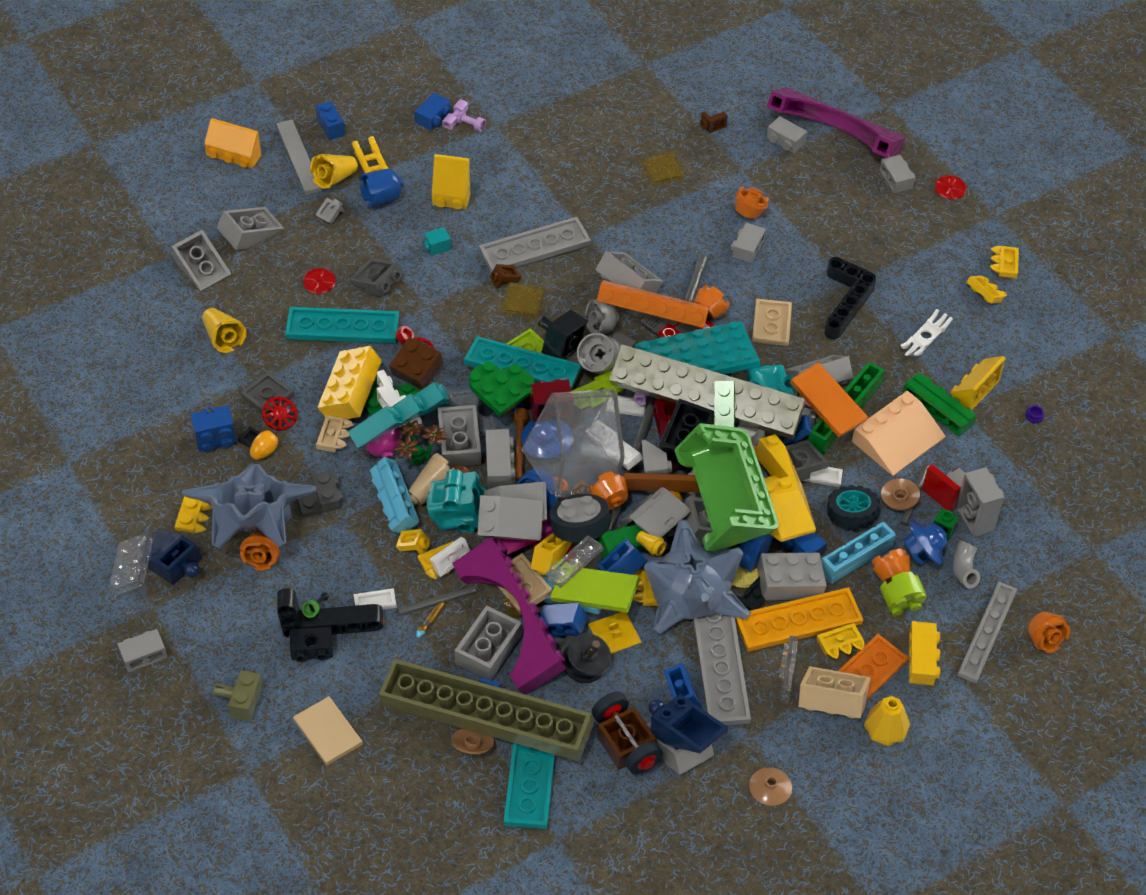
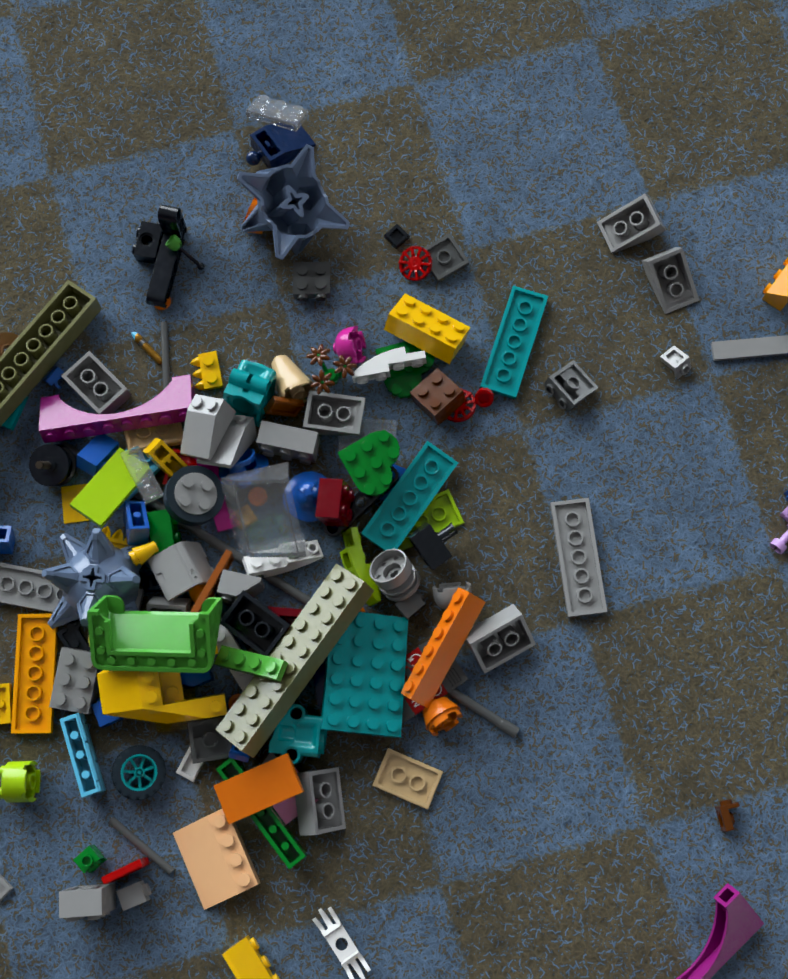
camera: 110 degrees right, 25 degrees up
(142, 650) = (187, 111): light grey brick -> none
(191, 514) = (328, 173): yellow plate -> none
(213, 428) = (403, 198): blue brick -> none
(223, 330) = (533, 227): yellow cone -> none
(243, 695) = (114, 179): olive brick -> none
(263, 445) = (380, 242): light orange animal -> none
(319, 281) = (582, 333): red wheel -> none
(327, 730) = (64, 242): tan tile -> none
(331, 169) = (732, 373): yellow cone -> none
(332, 433) = (376, 304): tan plate -> none
(376, 155) = (749, 410): yellow piece -> none
(380, 187) = (693, 414): blue cylinder -> none
(385, 598) = (181, 306): white tile -> none
(394, 495) = (282, 342): medium azure brick -> none
(405, 410) = (358, 364): teal arch -> none
(413, 540) = (231, 350): yellow bracket -> none
(437, 241) = (605, 457): teal brick -> none
(443, 560) = (199, 378): white plate -> none
(451, 182) = (675, 484): yellow slope -> none
(504, 273) = (542, 515): reddish brown bracket -> none
(520, 417) = (305, 468): dark orange piece -> none
(523, 300) = (505, 525): clear yellow tile -> none
(611, 488) = (218, 534): orange cone -> none
(663, 168) = (666, 732): clear yellow tile -> none
(748, 242) = (524, 790): light grey brick -> none
(750, 202) = (580, 812): orange cone -> none
(786, 134) = (685, 896): light grey brick -> none
(861, 287) = (413, 877): black beam -> none
(891, 564) = (55, 783): orange cone -> none
(900, 488) = (131, 823): medium nougat dish -> none
(926, 541) = (67, 826): blue helmet -> none
(940, 404) = (241, 918): green brick -> none
(963, 565) = (40, 859): light grey cylinder -> none

